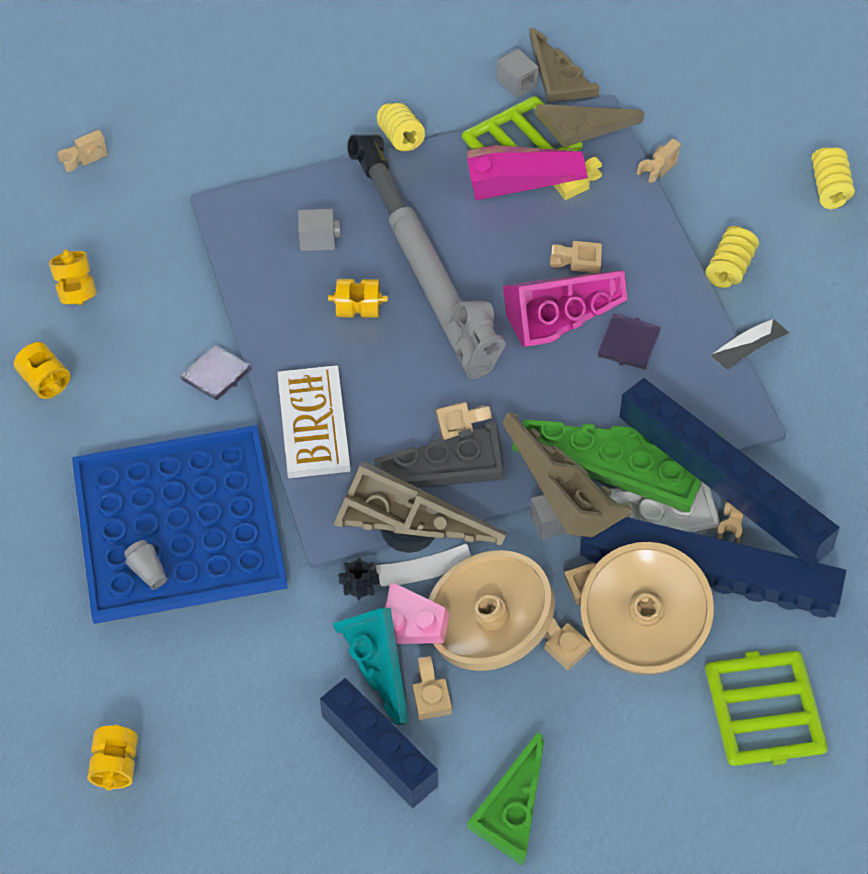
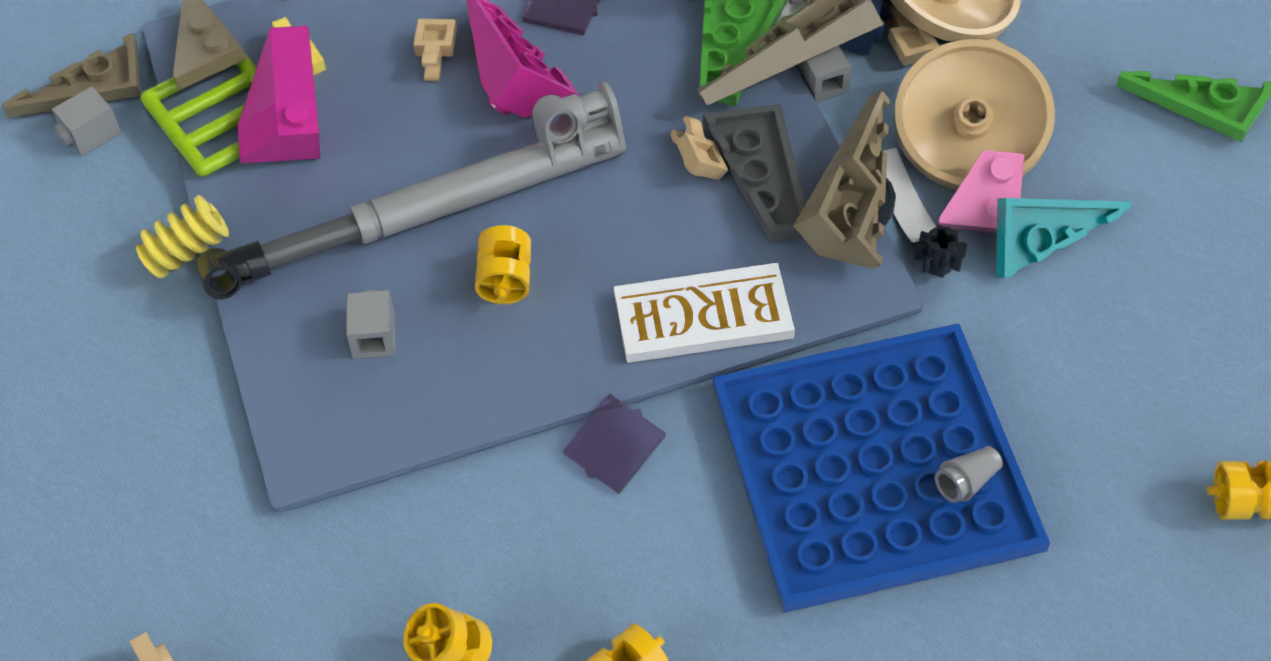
camera: 90 degrees left, 0 degrees up
(379, 742) = (1164, 216): dark blue brick -> none
(430, 695) = (1080, 178): tan plate -> none

